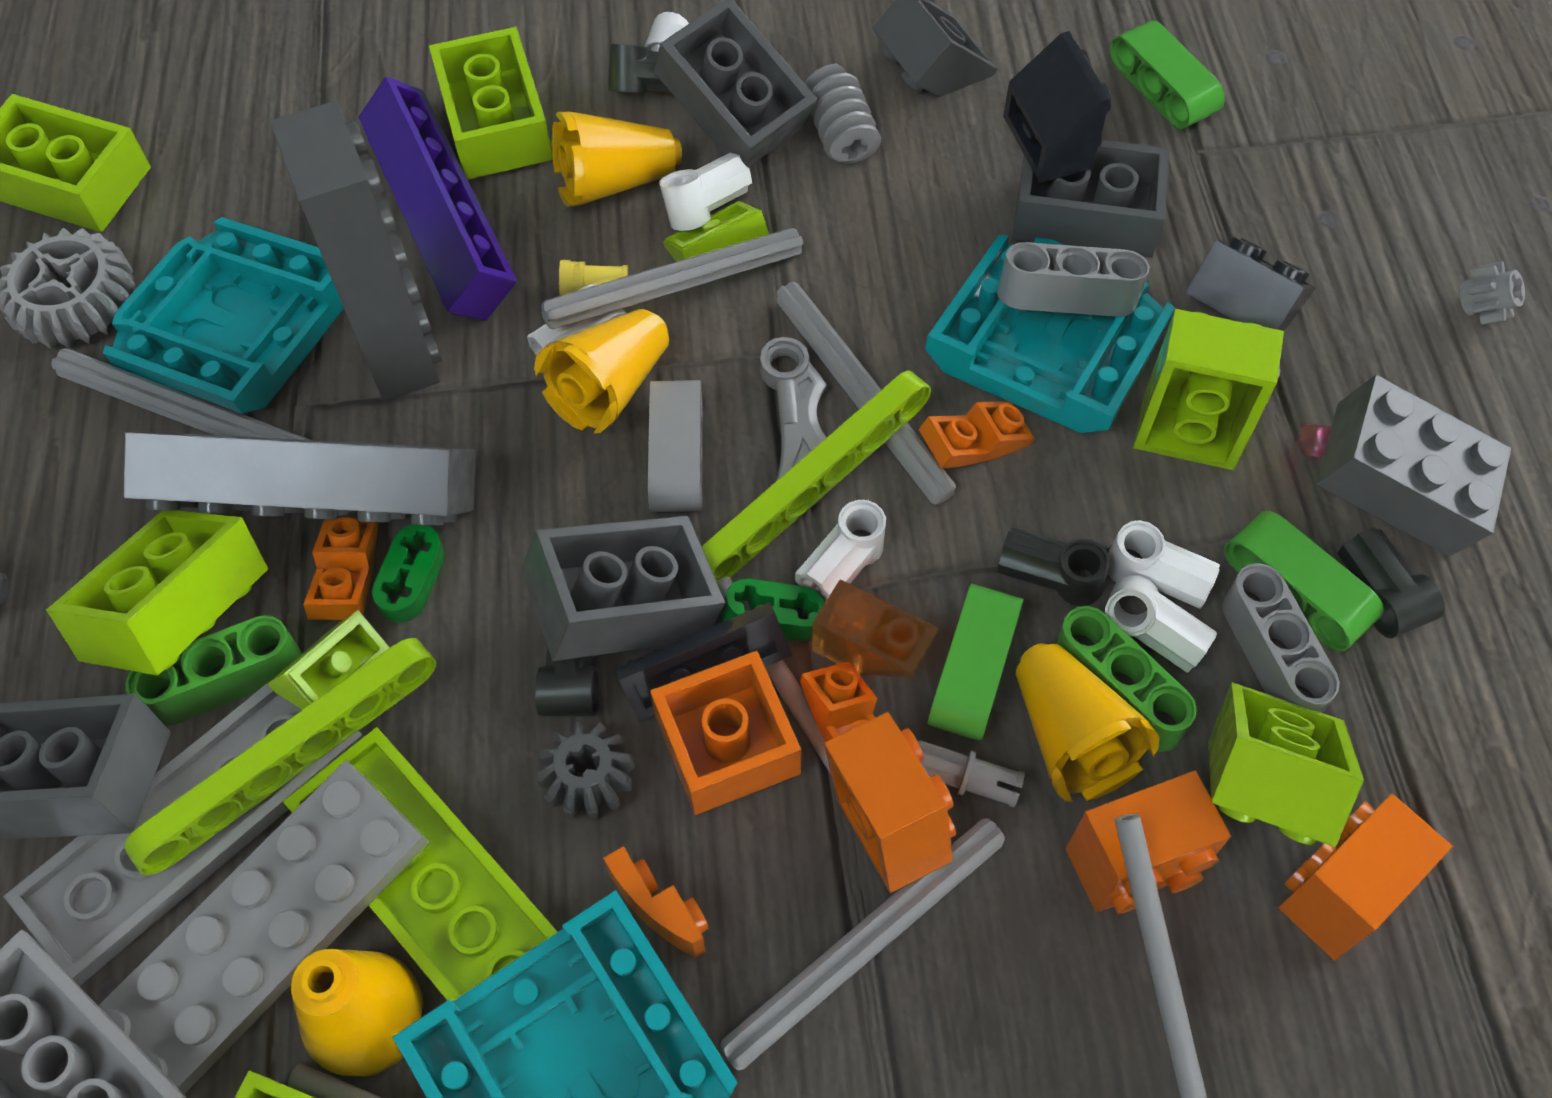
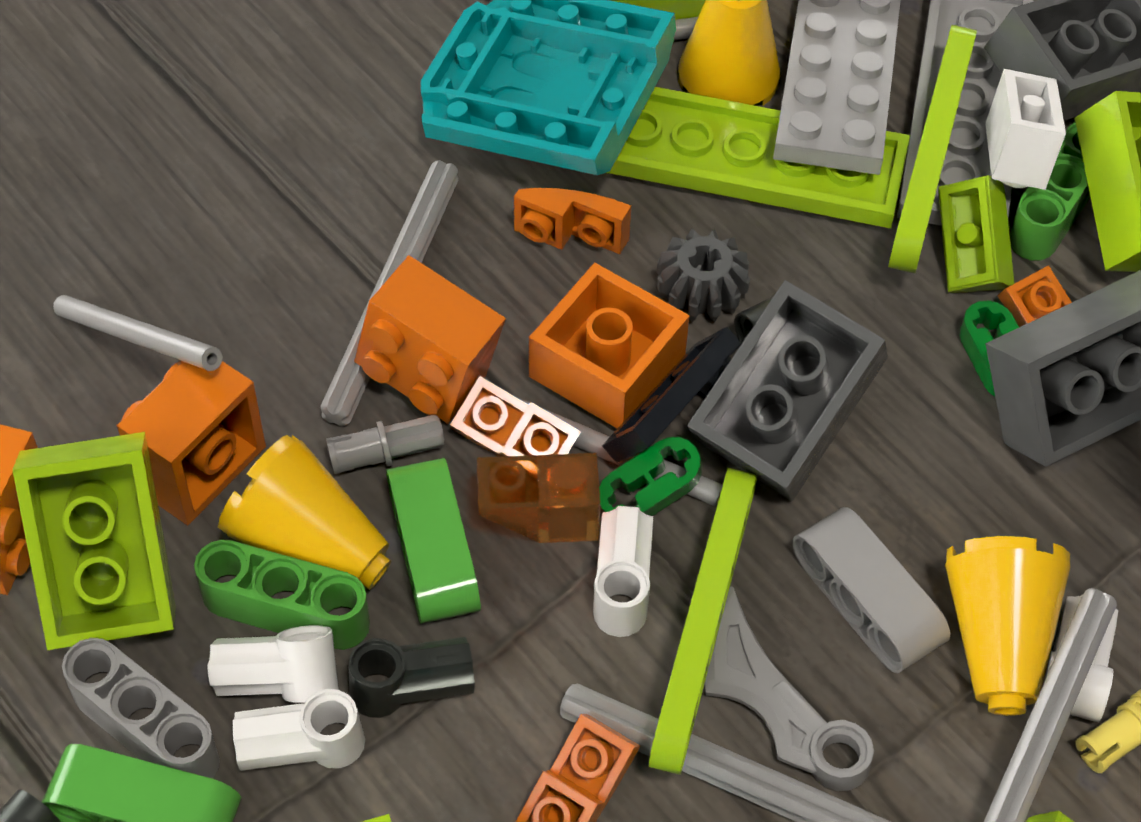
camera: 145 degrees right, 5 degrees down
(208, 692) = (1024, 129): none -> white brick

